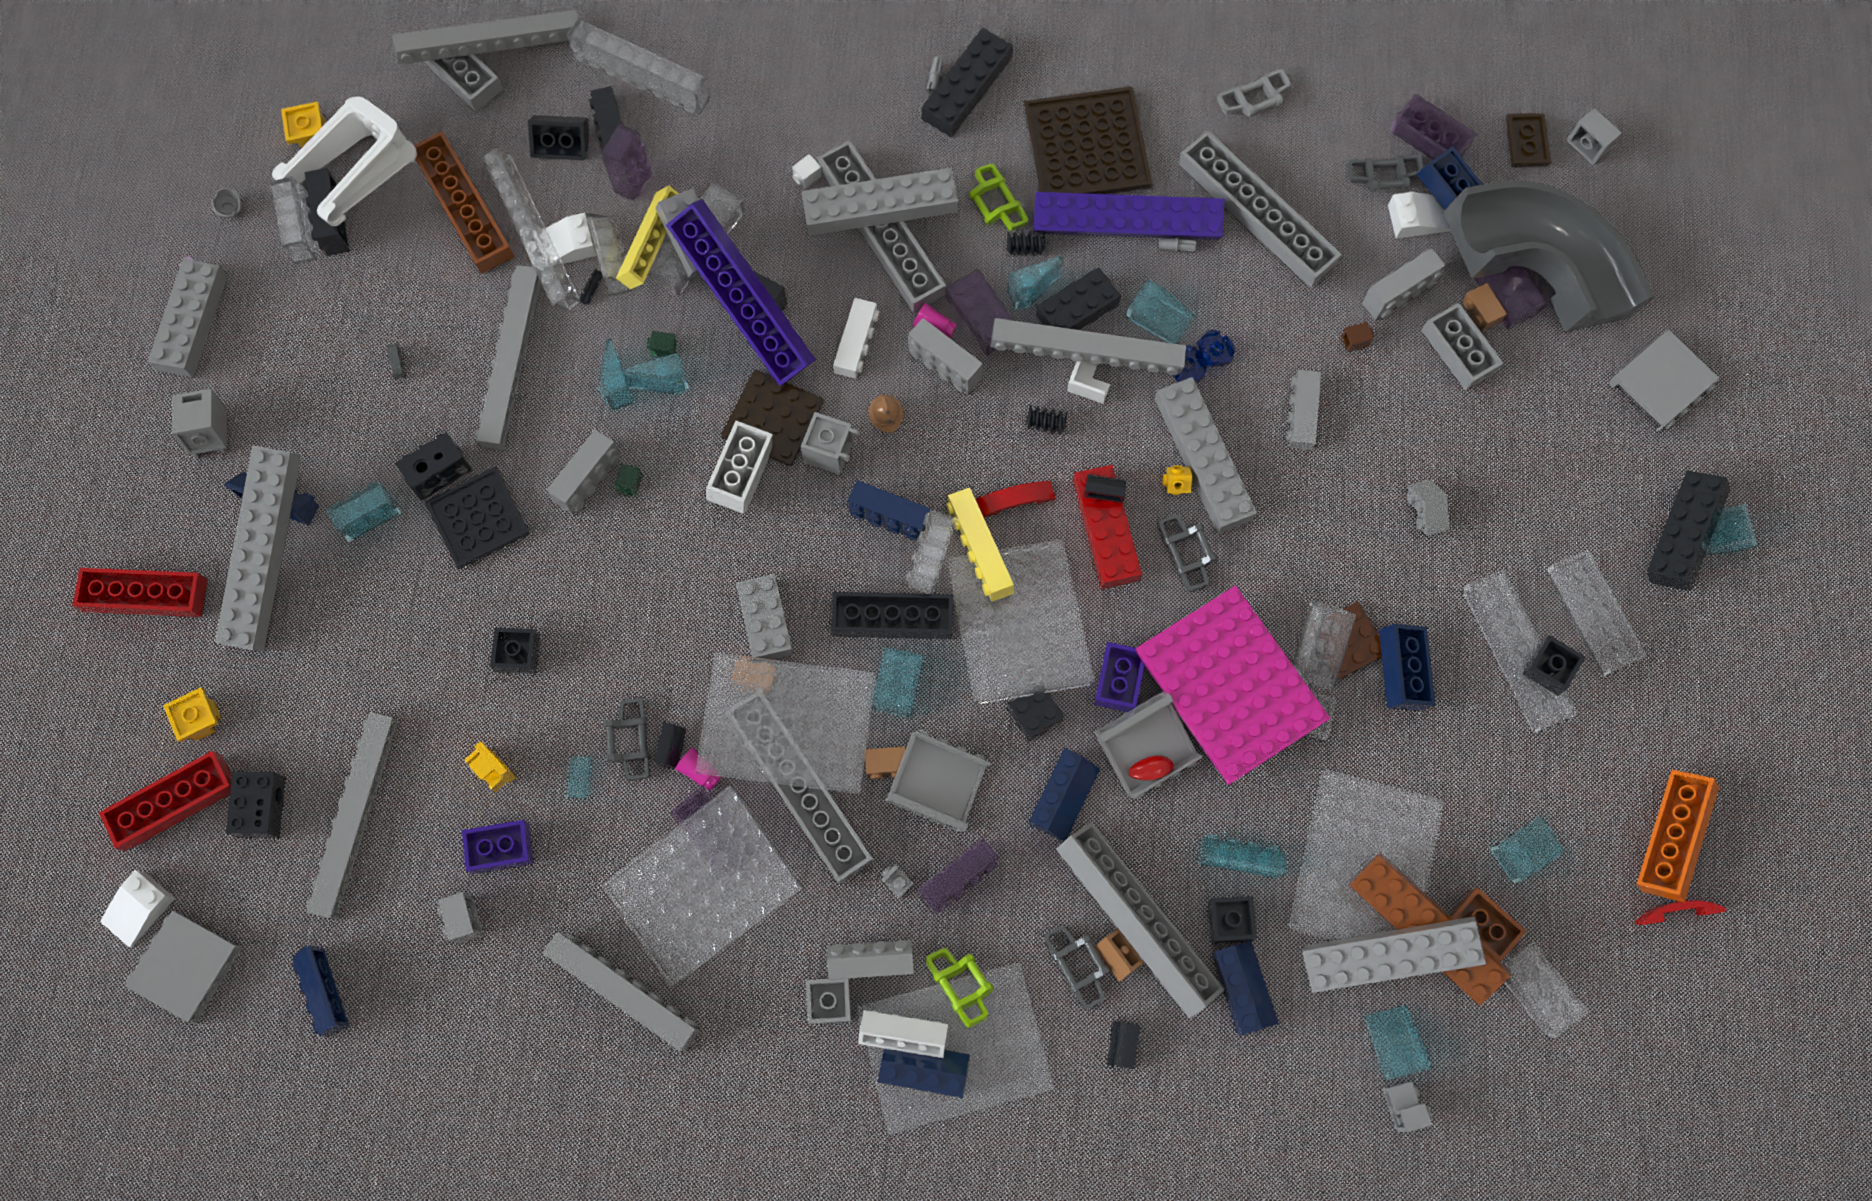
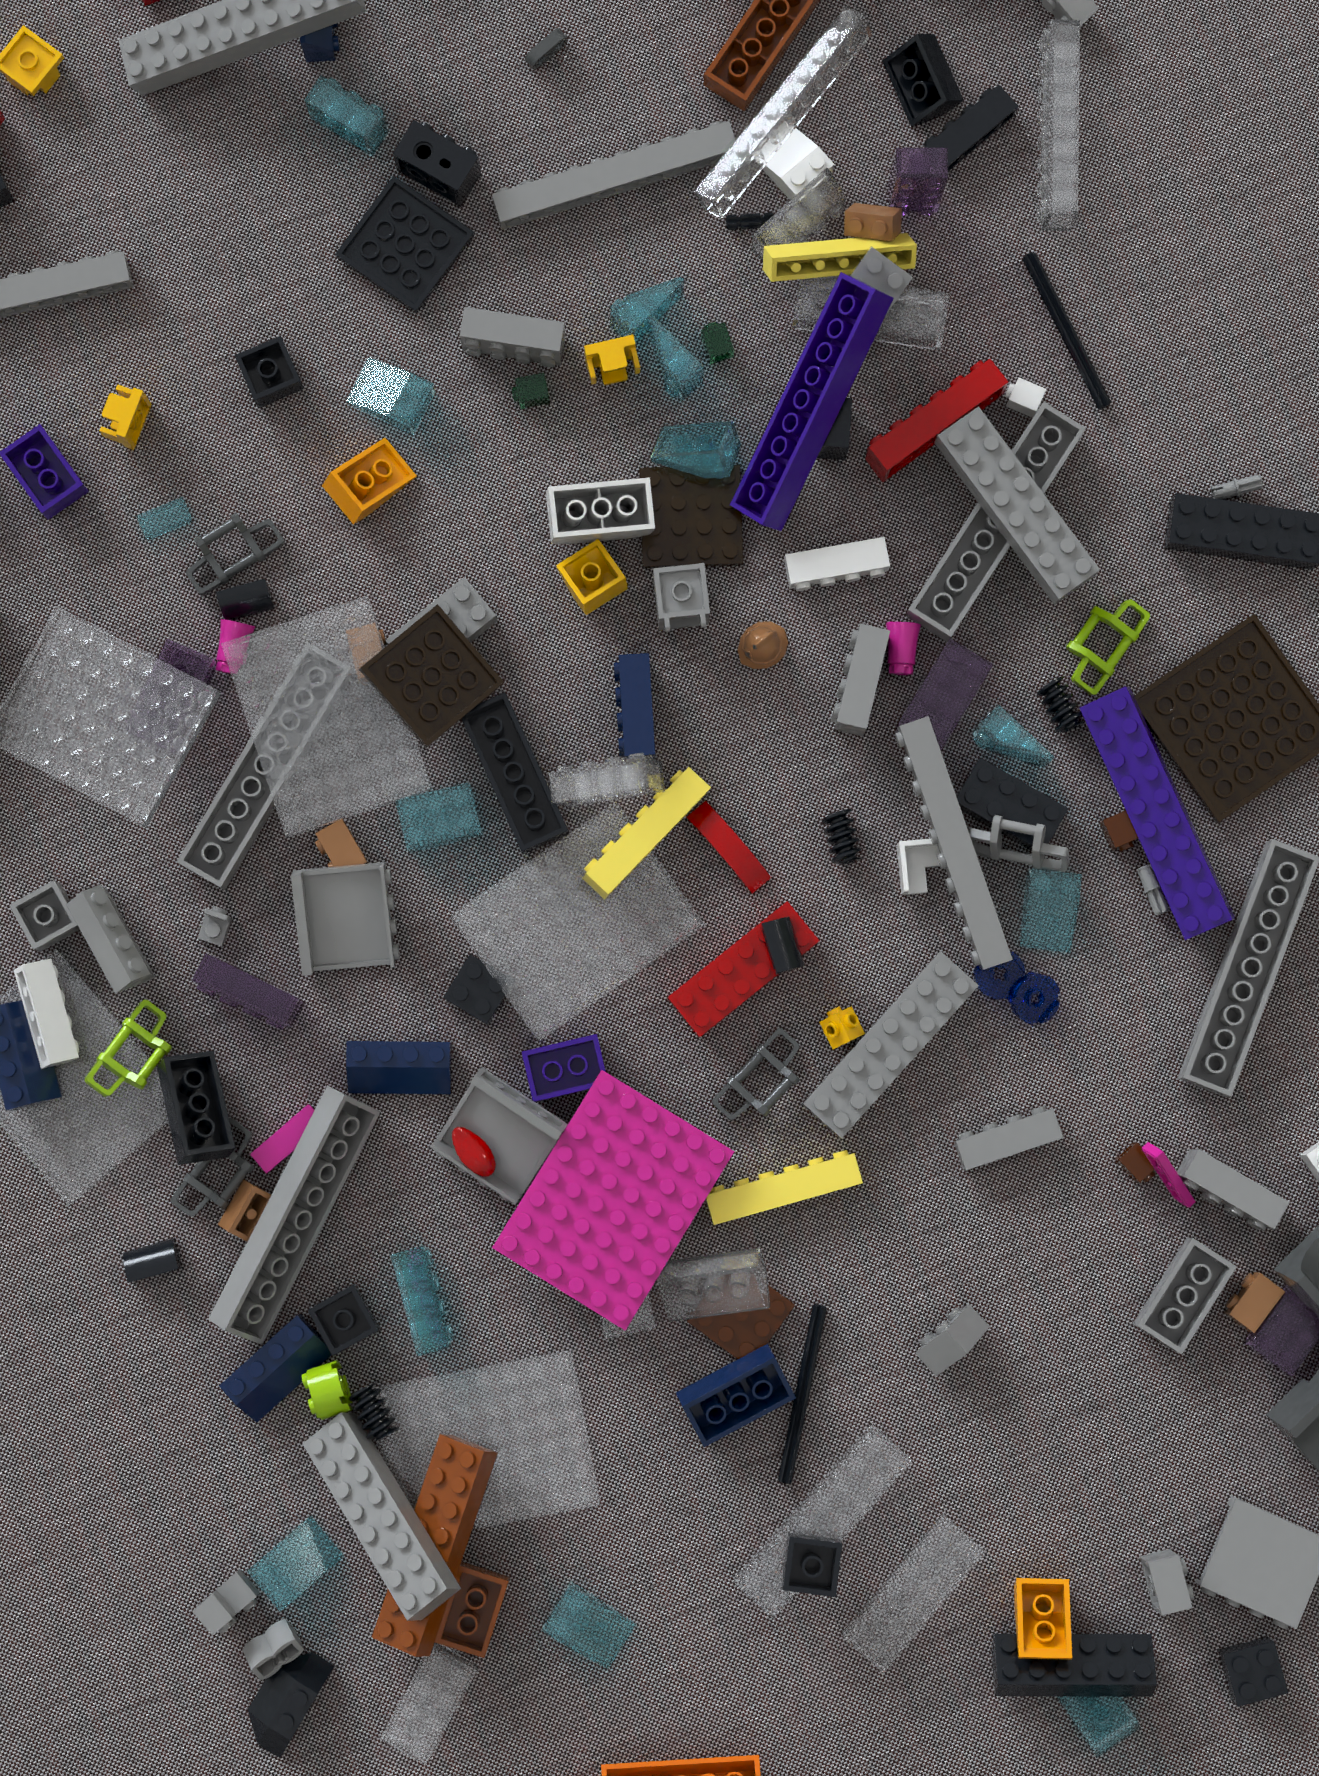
camera: 60 degrees right, 10 degrees up
(577, 576) = (392, 395): none -> clear light blue slope
(630, 620) = (368, 480): none -> light orange slope
(634, 417) = (612, 359): none -> yellow panel
(637, 207) = (872, 221): none -> medium nougat brick
(729, 388) = (698, 448): none -> clear light blue slope
(775, 128) = (1066, 330): none -> black axle
(781, 498) = (592, 577): none -> yellow slope
(791, 230) = (918, 432): none -> red brick
(796, 634) = (431, 675): none -> dark brown plate
(1026, 953) = (195, 1107): none -> black brick
(1078, 903) = (283, 1141): none -> dark pink tile
(1125, 301) = (1039, 848): none -> light grey bar
(1128, 246) = (1119, 831): none -> reddish brown brick
(1273, 568) = (784, 1188): none -> light yellow brick
(1280, 955) = (327, 1390): none -> lime brick
(1311, 928) = (373, 1412): none -> black piece
(1377, 316) = (1168, 1174): none -> dark pink tile
(1415, 620) = (802, 1394): none -> black axle
(1456, 1088) = (273, 1649): none -> light grey brick
(1498, 1096) = (286, 1700): none -> black wedge
(1649, 533) = (1043, 1618): none -> light orange slope
(1654, 444) = (1166, 1581): none -> light grey brick
(1736, 420) = (1252, 1671): none -> black brick

